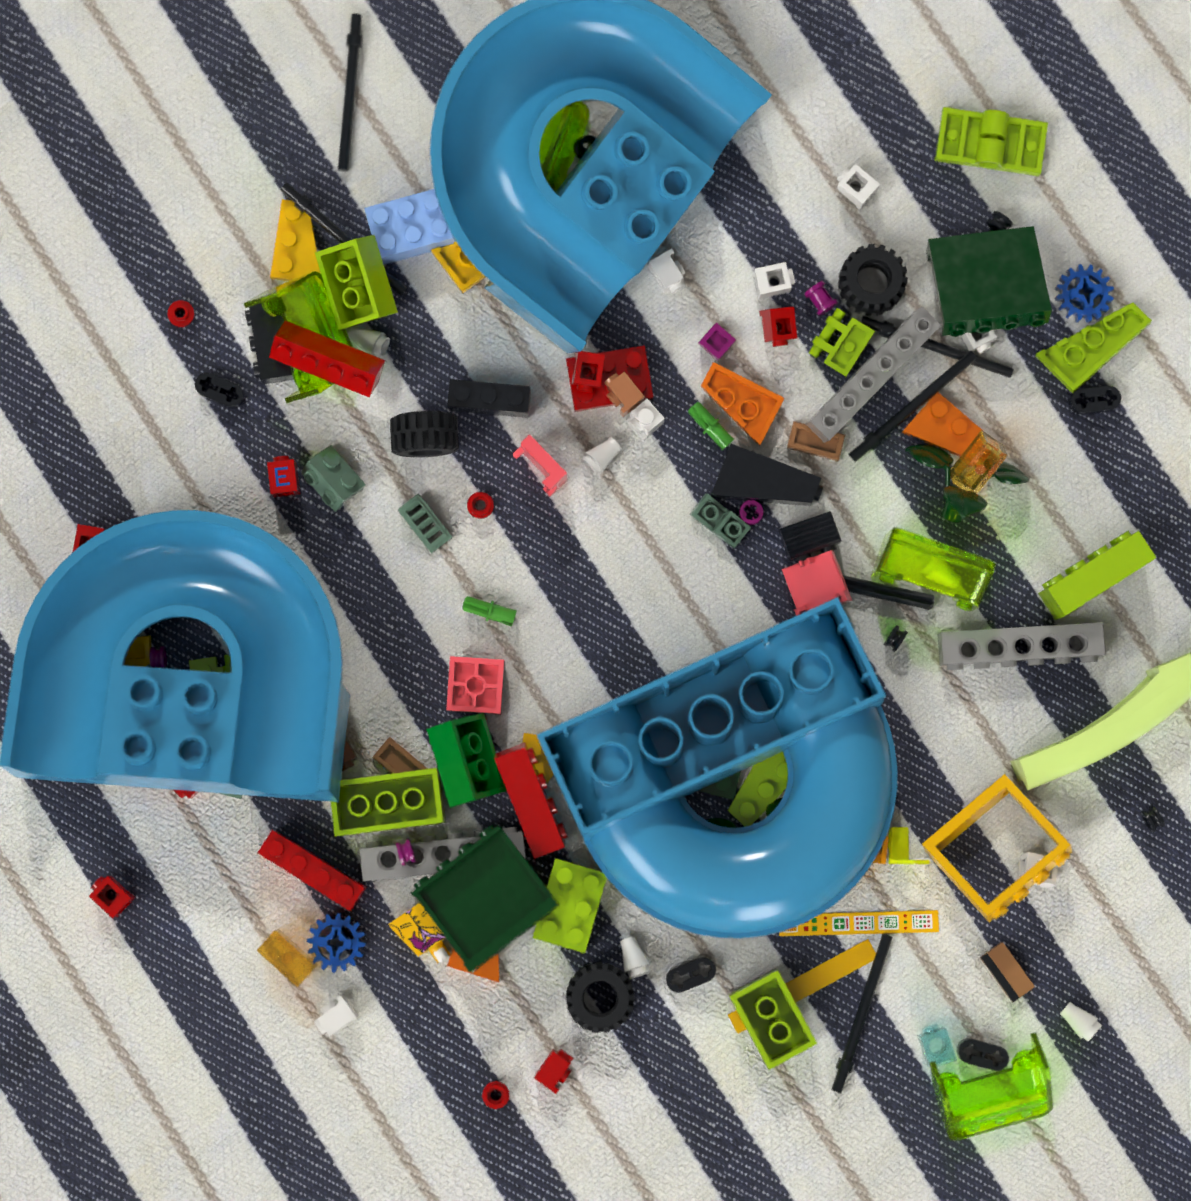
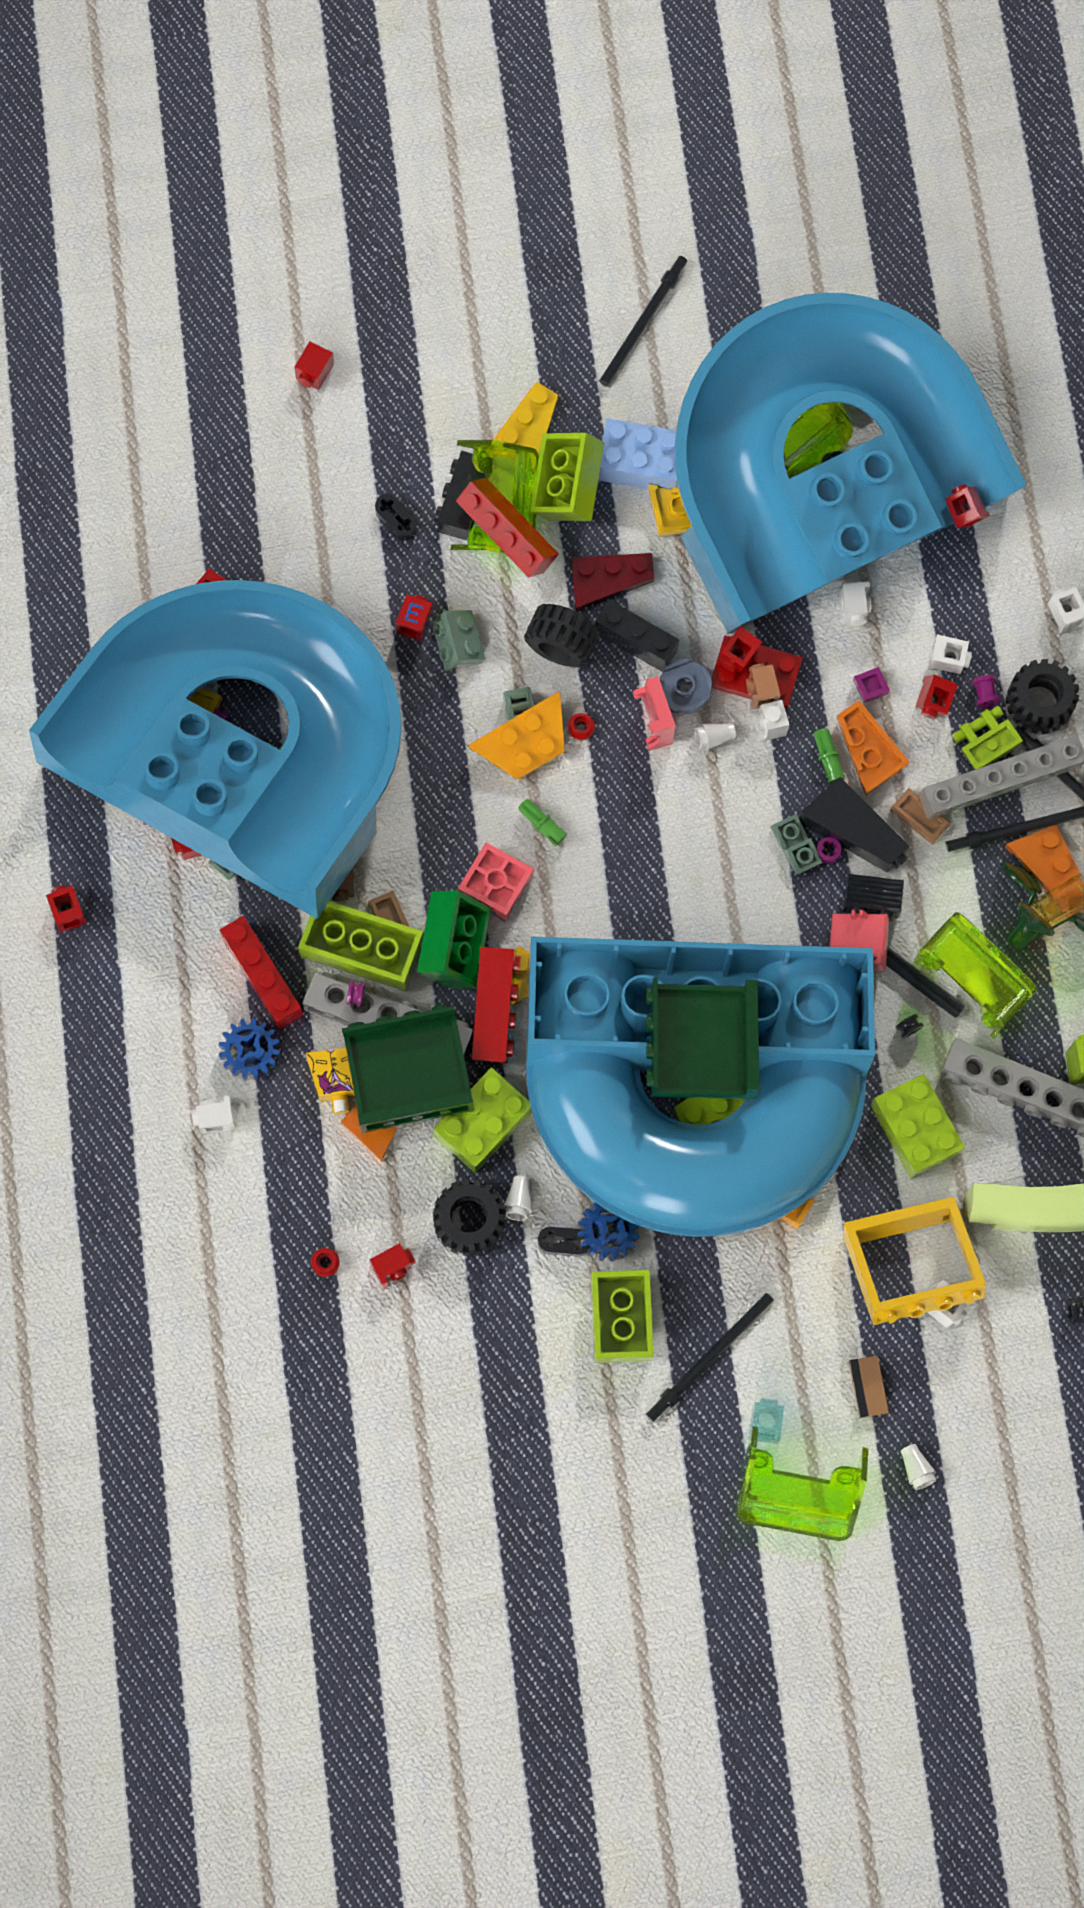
camera: 25 degrees right, 10 degrees down
(74, 283) = (314, 365): none -> red brick
(186, 319) = (395, 443): red plate -> none
(287, 957) = (197, 1040): clear yellow brick -> none
(305, 205) = (555, 395): black bar -> none
(370, 341) = (554, 536): white cone -> none
(436, 352) = (604, 576): none -> dark red wing
(438, 542) = (525, 740): none -> light orange wing
(554, 408) = (693, 673): none -> sand blue plate
(722, 959) = (618, 1235): none -> blue gear
(725, 144) = (958, 506): none -> red brick
(732, 758) = (703, 1040): none -> dark green panel
(822, 975) = (689, 1305): yellow sticker -> none
(868, 923) = (749, 1274): sticker -> none
(899, 847) = (820, 1220): neon yellow bracket -> none
(944, 725) = (917, 1126): none -> lime brick
(980, 1060) = (803, 1458): black beam -> none

